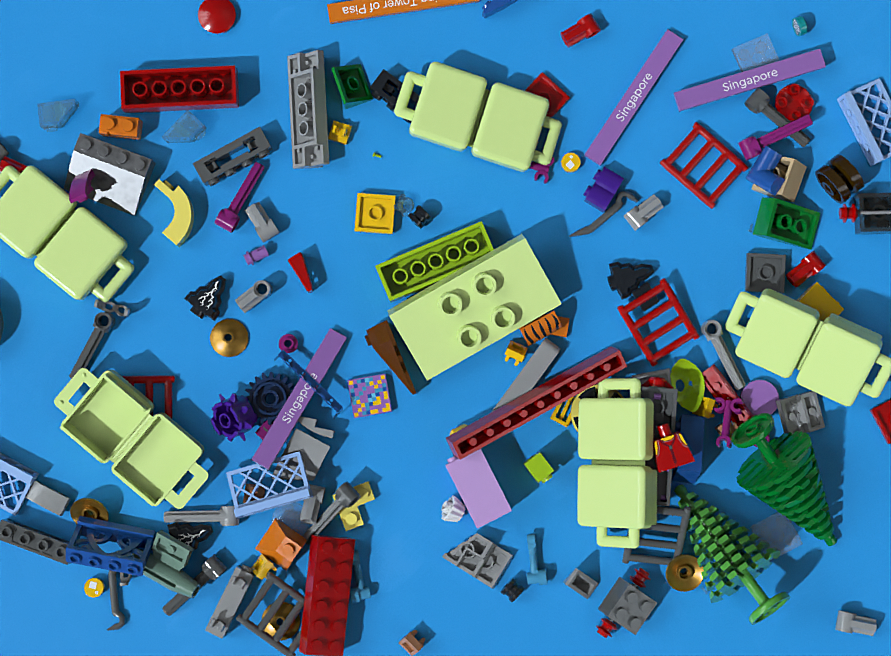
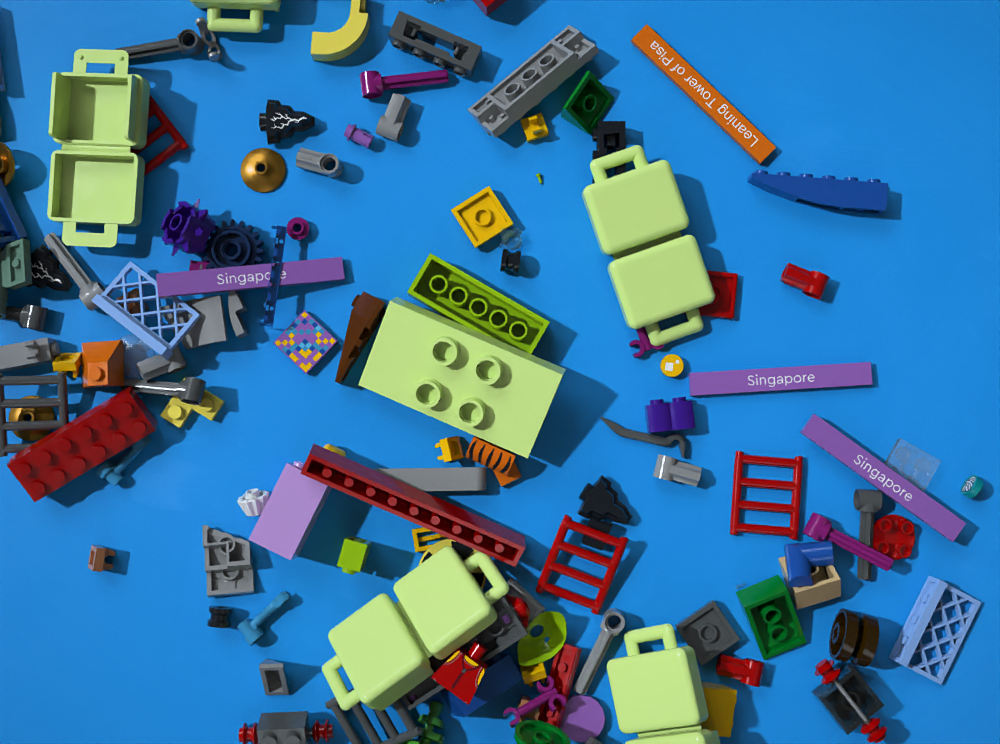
camera: 50 degrees right, 0 degrees up
(298, 264) = (377, 185): red slope -> none

